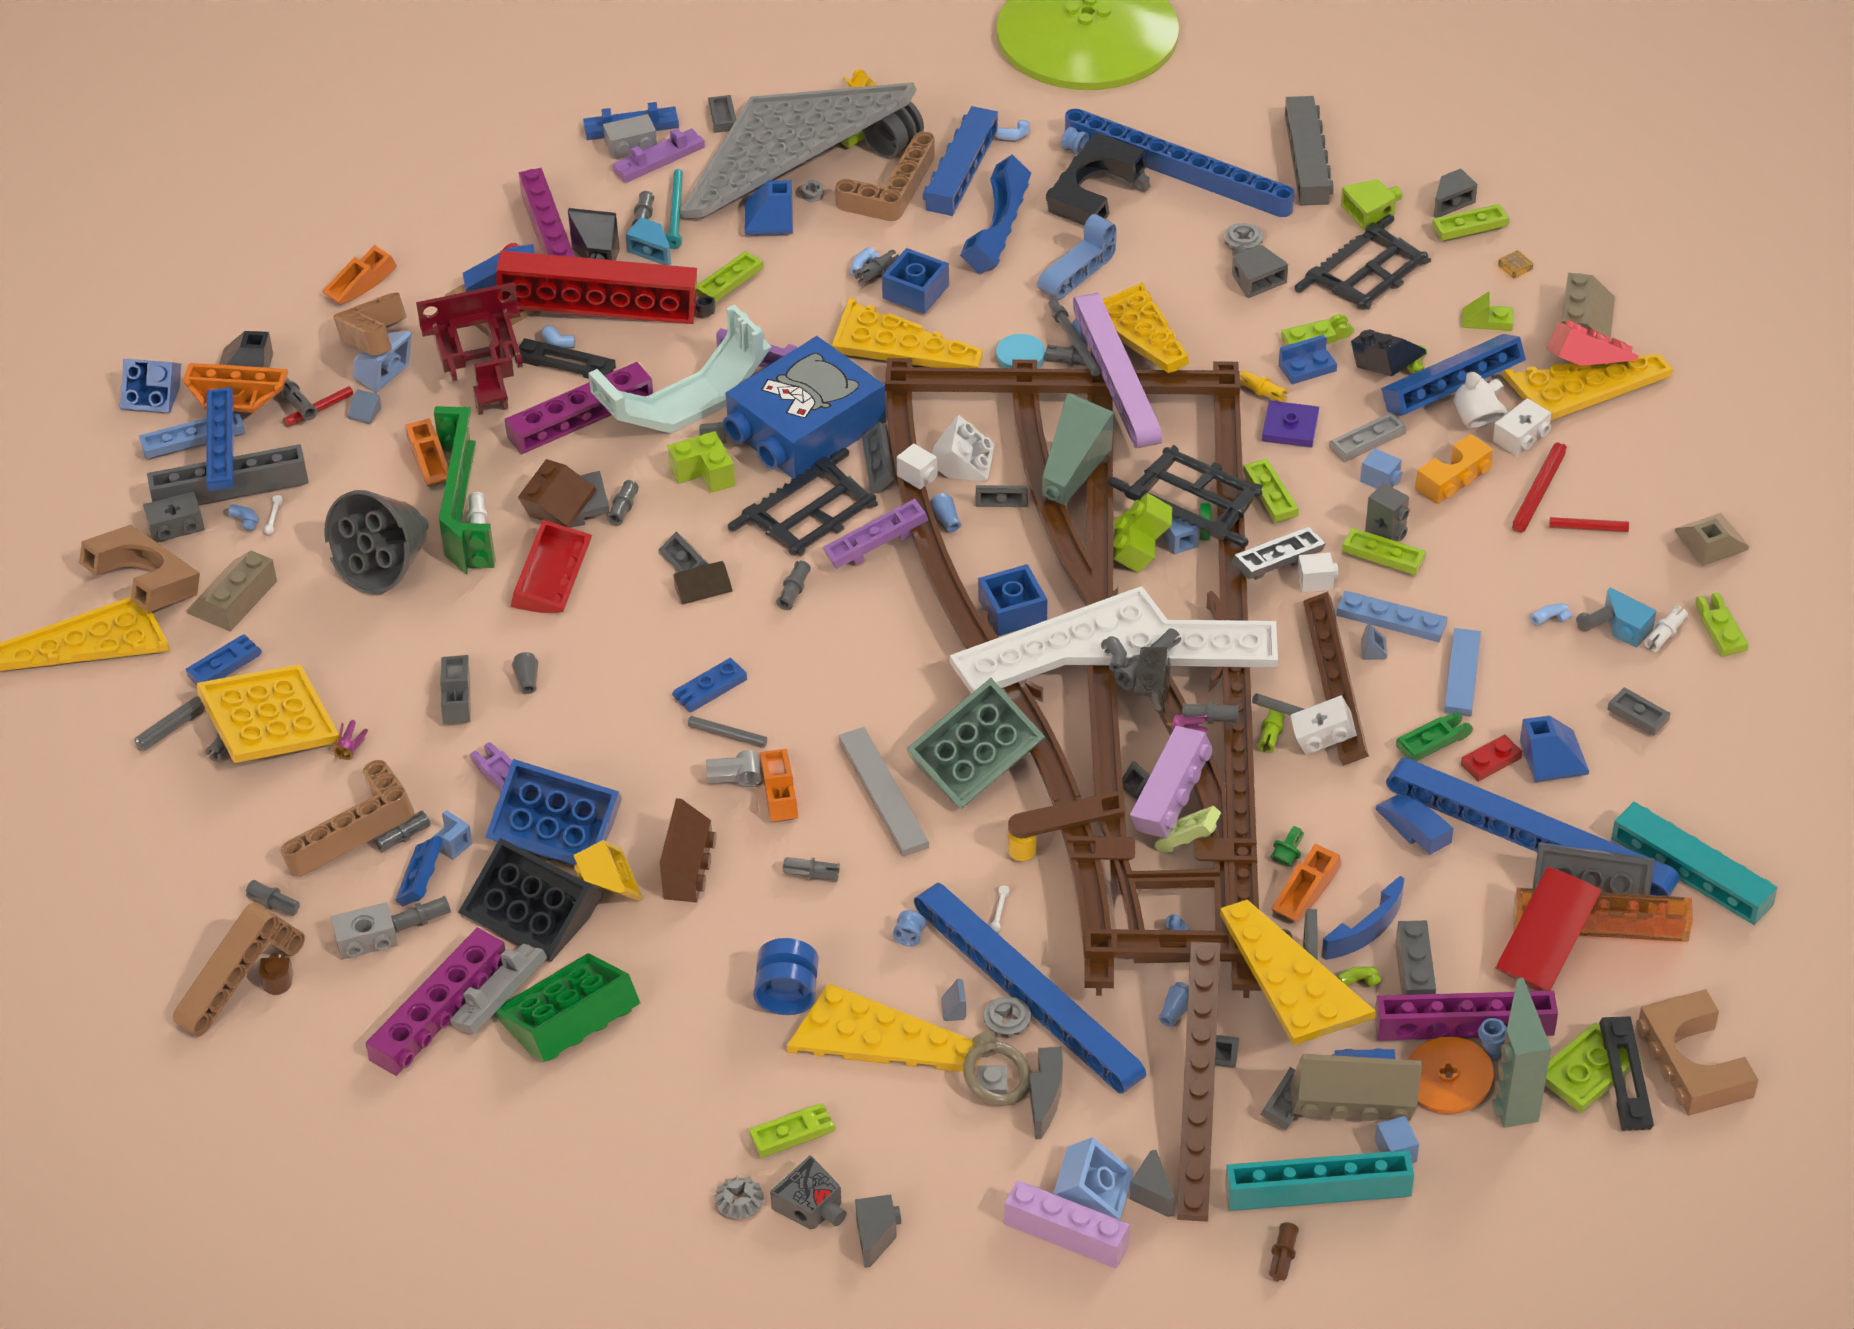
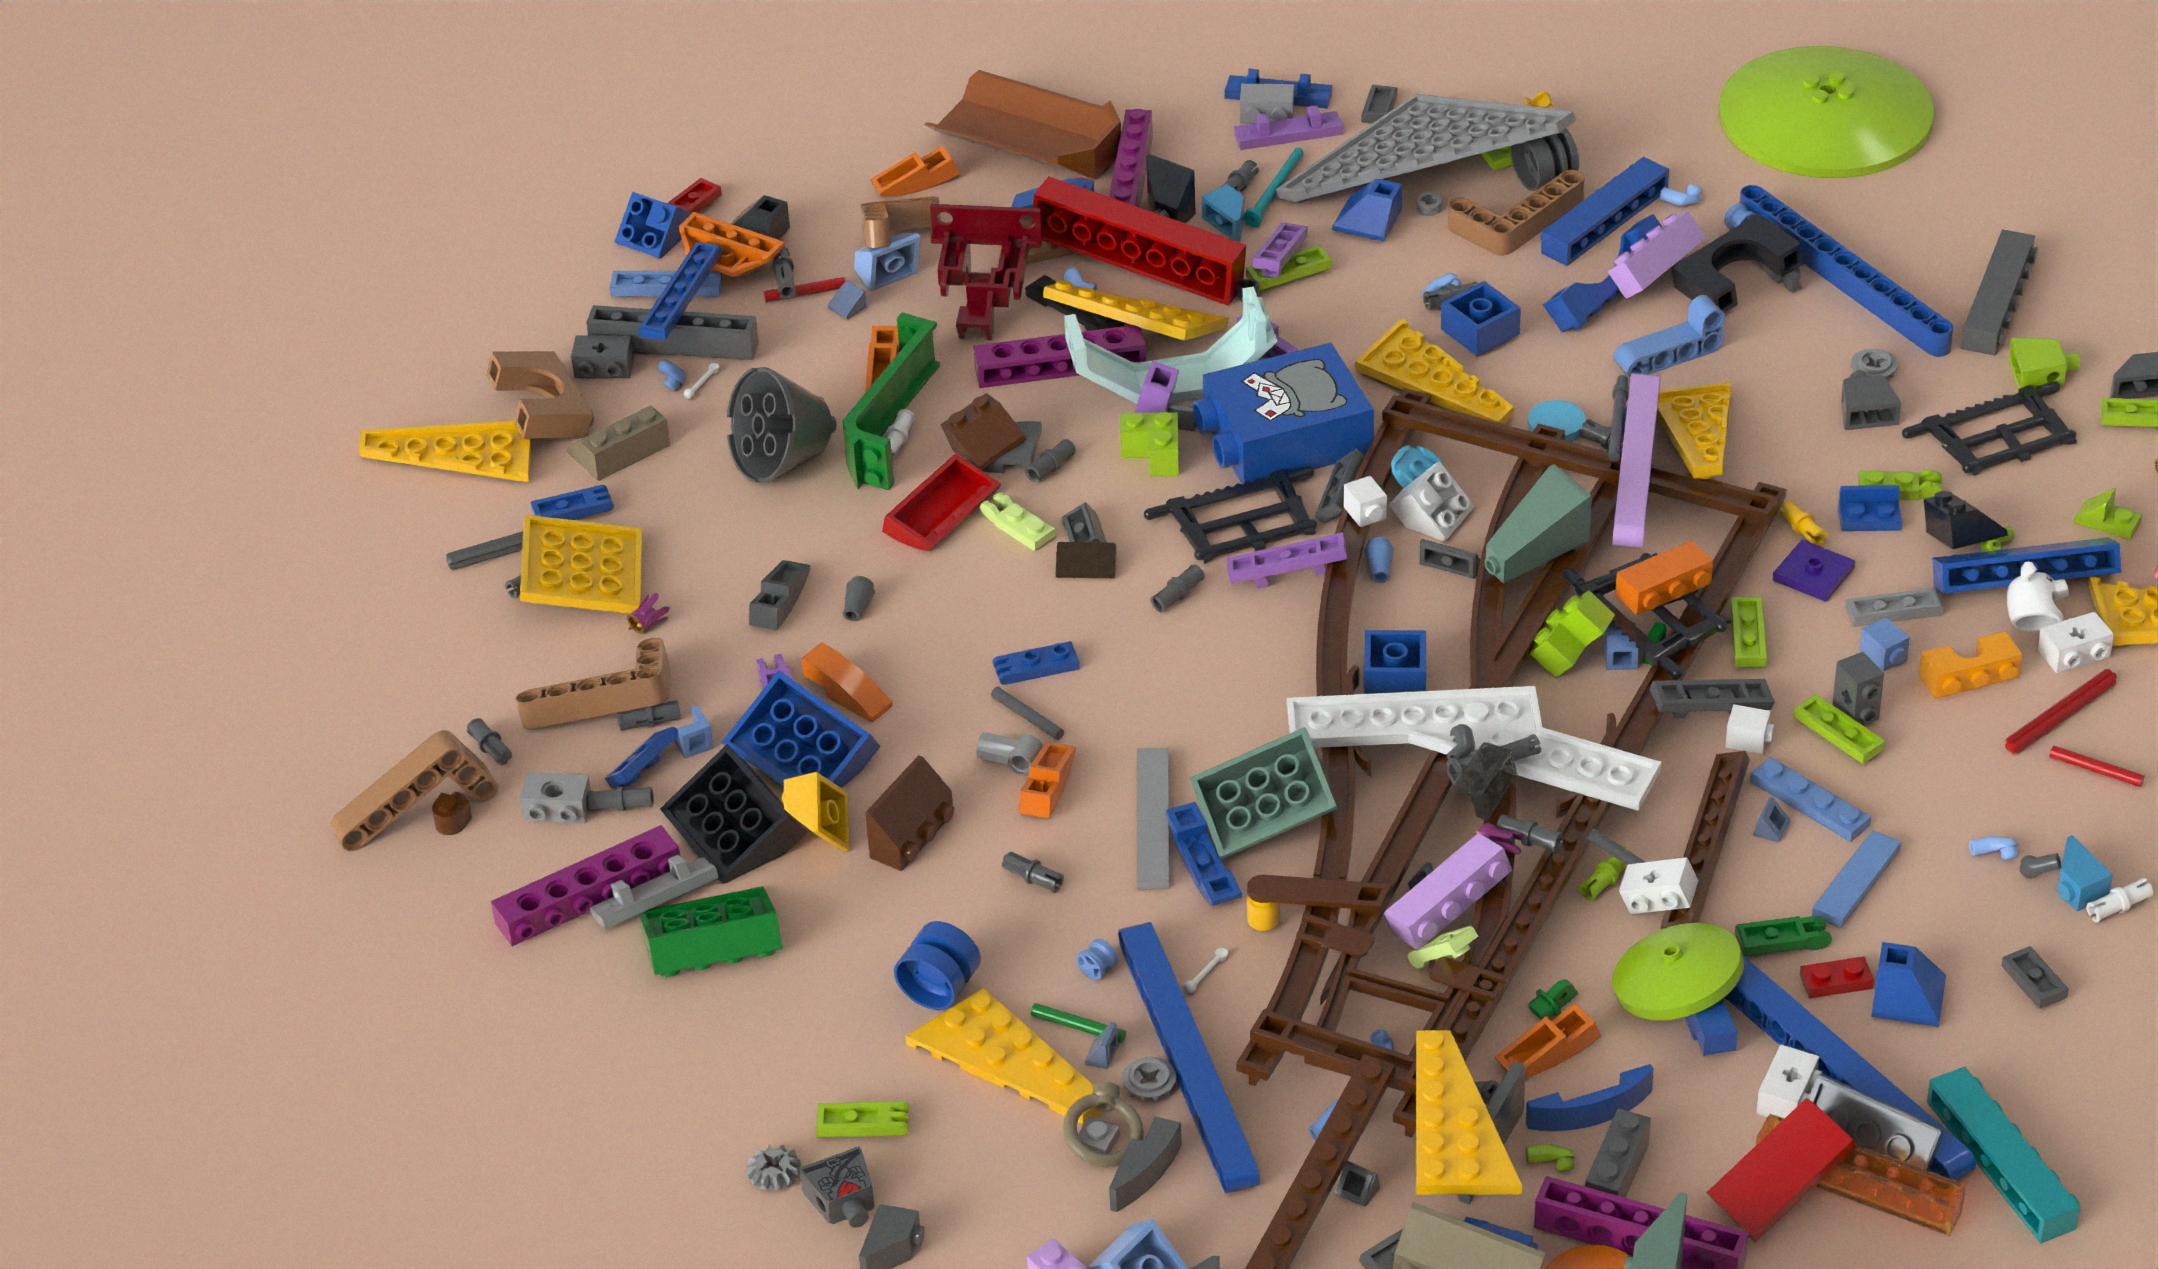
camera: 25 degrees right, 5 degrees down
(174, 346) = (697, 196): none -> red plate
(441, 204) = (1035, 124): none -> dark orange piece
(560, 751) = (845, 682): none -> orange slope
(623, 564) = (1017, 521): none -> yellowish green hinge
(632, 350) = (1144, 313): none -> yellow wing
(685, 416) = (1157, 388): none -> medium lavender slope
(718, 263) = (1279, 248): none -> medium lavender hinge
(914, 987) = (1072, 1021): none -> green bar
(931, 423) = (1411, 463): none -> medium azure tile
(943, 814) = (1201, 856): none -> blue slope
(1029, 188) = (1656, 254): none -> lavender brick
(1198, 465) = (1664, 577): none -> orange brick
(1377, 792) = (1678, 971): none -> lime dish
(1508, 858) = (1787, 1082): none -> white brick

